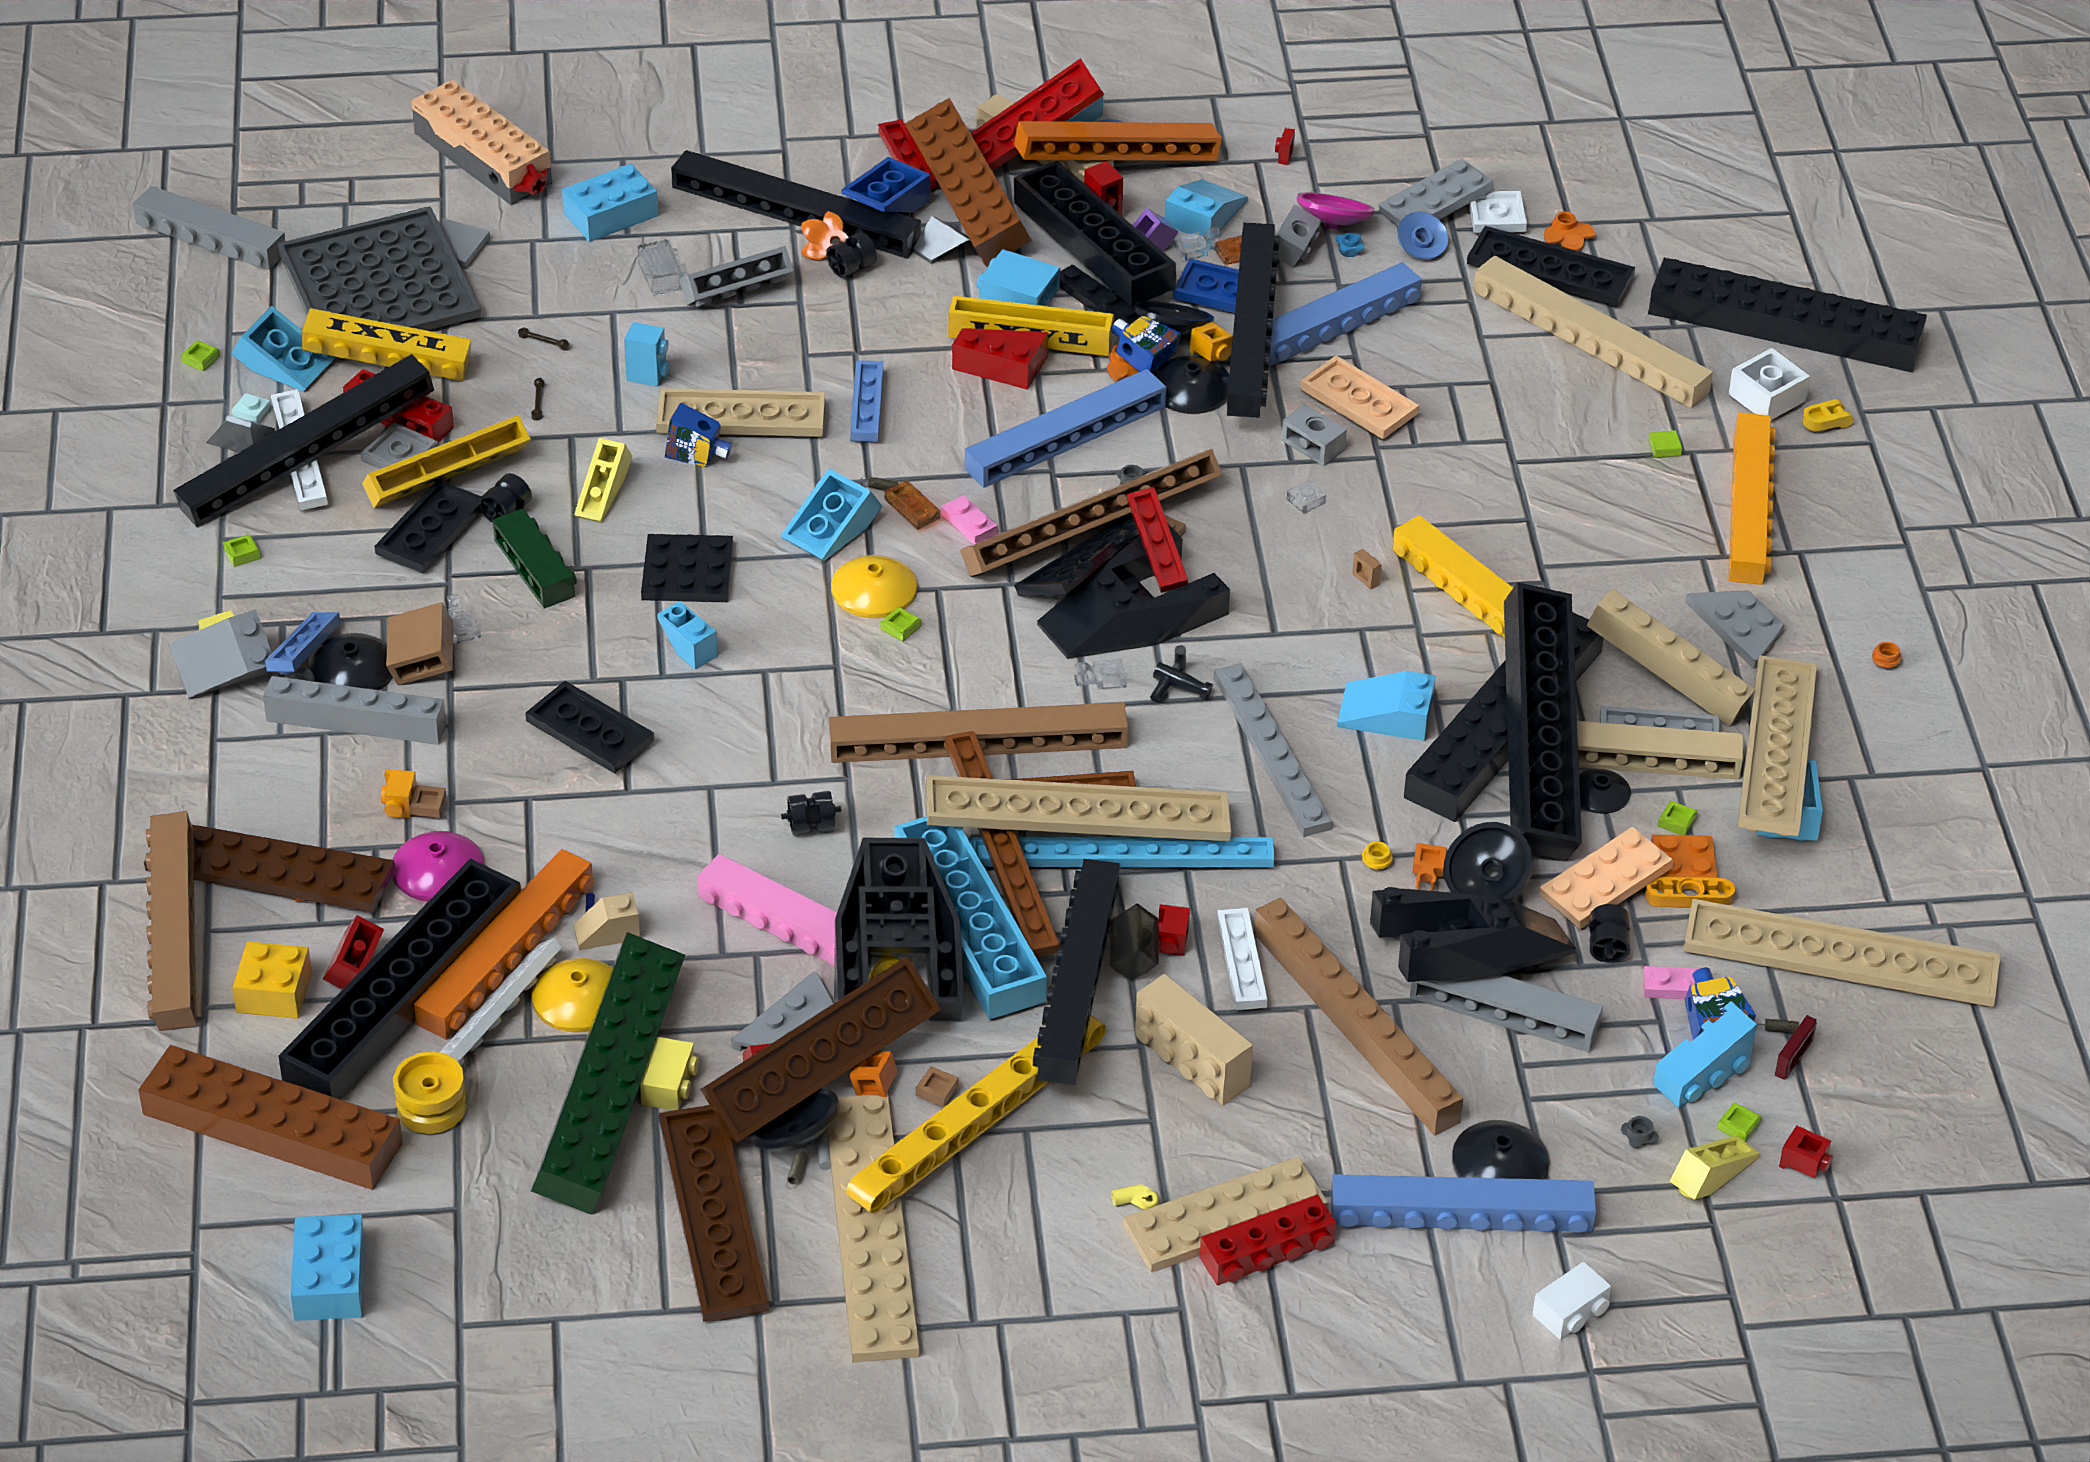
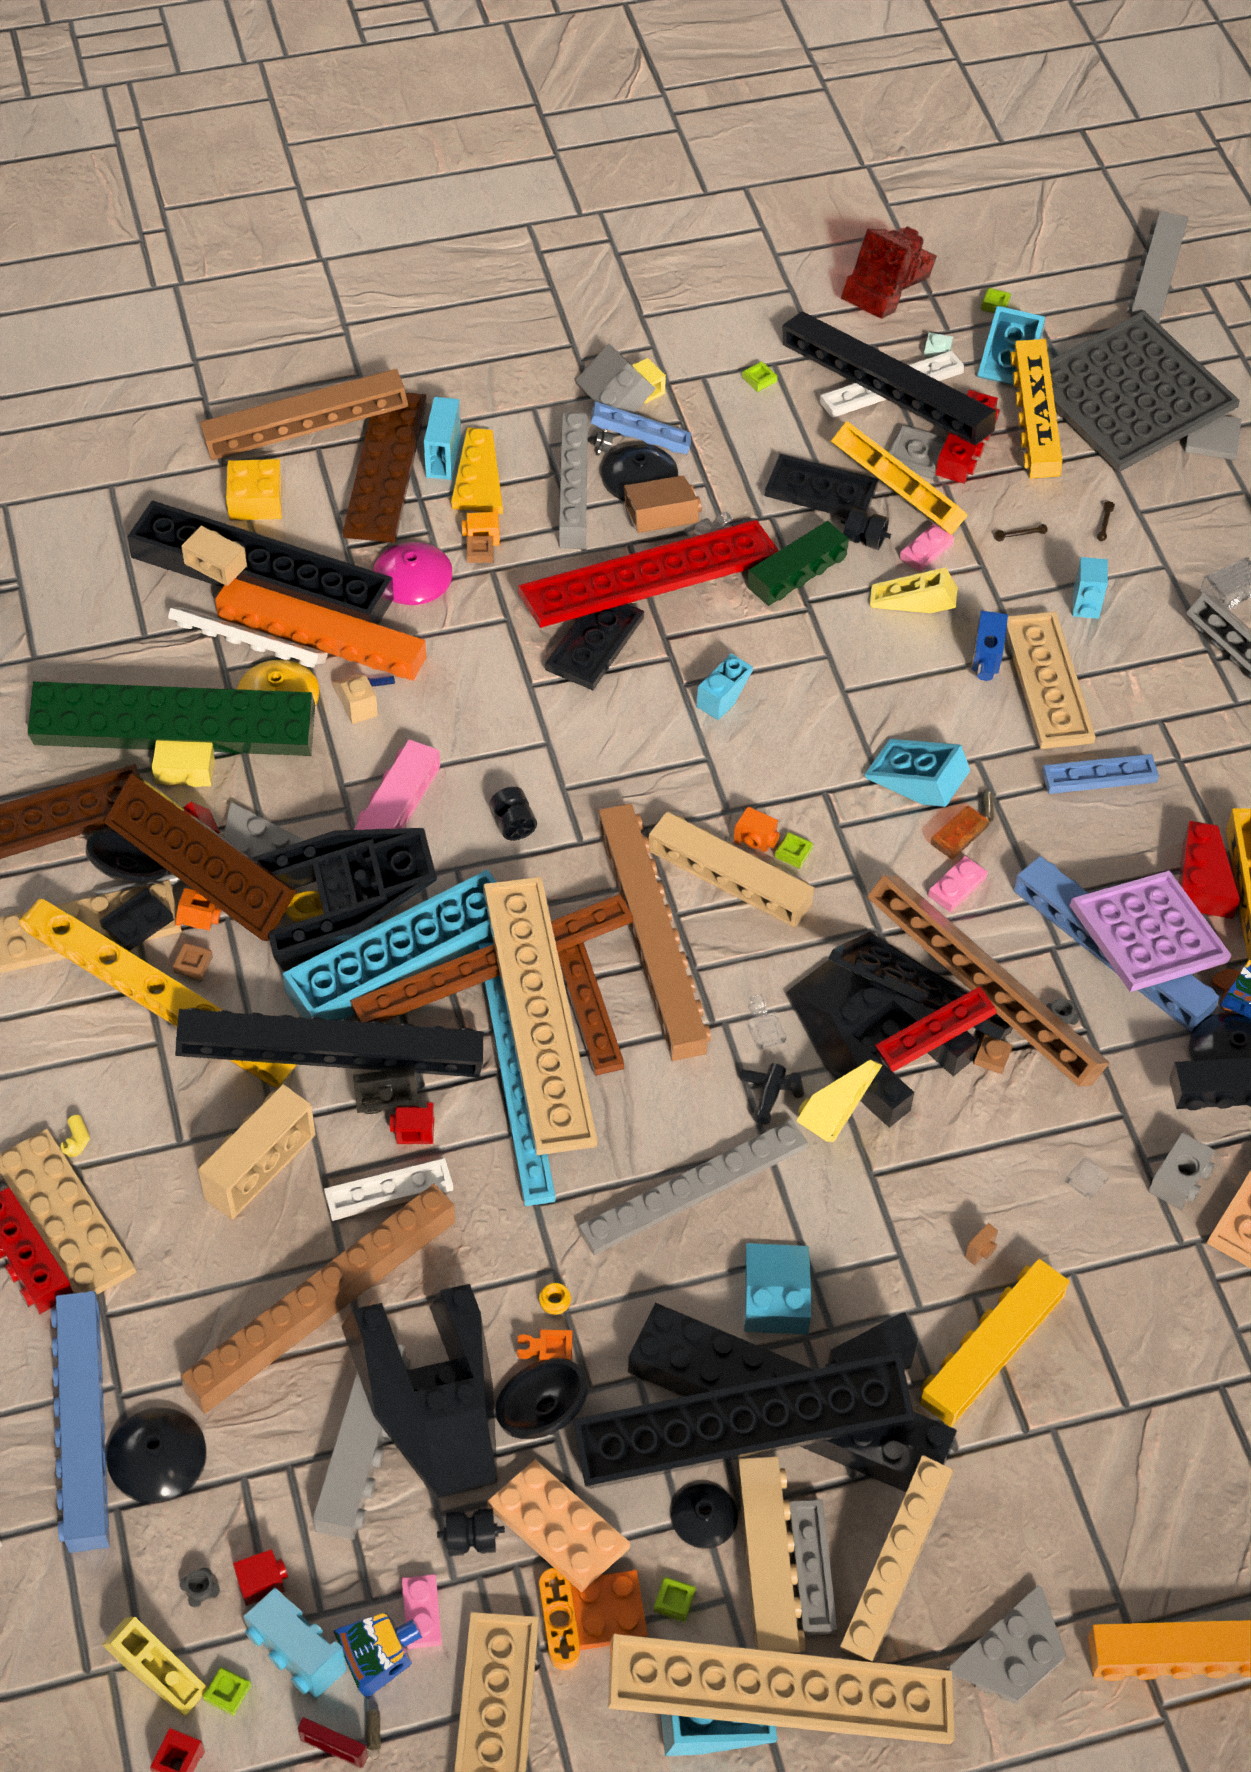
camera: 80 degrees right, 10 degrees up
(143, 409) = (886, 267): none -> clear red brick
(239, 434) = (902, 345): flat silver slope -> none
(259, 802) = (442, 438): none -> medium azure brick
(271, 1117) = (104, 518): dark orange brick -> none
(311, 795) = (477, 476): none -> yellow wing
(353, 951) = (287, 528): red brick -> none
(400, 995) = (214, 555): none -> tan brick
(429, 1092) = (137, 607): yellow wheel -> none
(519, 667) = (646, 573): none -> red plate
(537, 467) = (926, 547): none -> bright pink plate
(687, 568) = (824, 677): black plate -> none
(797, 1167) = (91, 875): dark tan piece -> none
(873, 586) = (839, 832): yellow dish -> none
(875, 641) = (756, 830): none -> orange brick
(879, 1119) = (137, 920): none -> black plate
(920, 664) = (731, 869): none -> tan brick
(1073, 391) = (1150, 931): none -> lavender plate
(1213, 626) = (833, 1105): none -> light yellow slope
(1469, 645) = (886, 1338): none -> black slope
(1637, 1085) = (259, 1576): none -> red brick

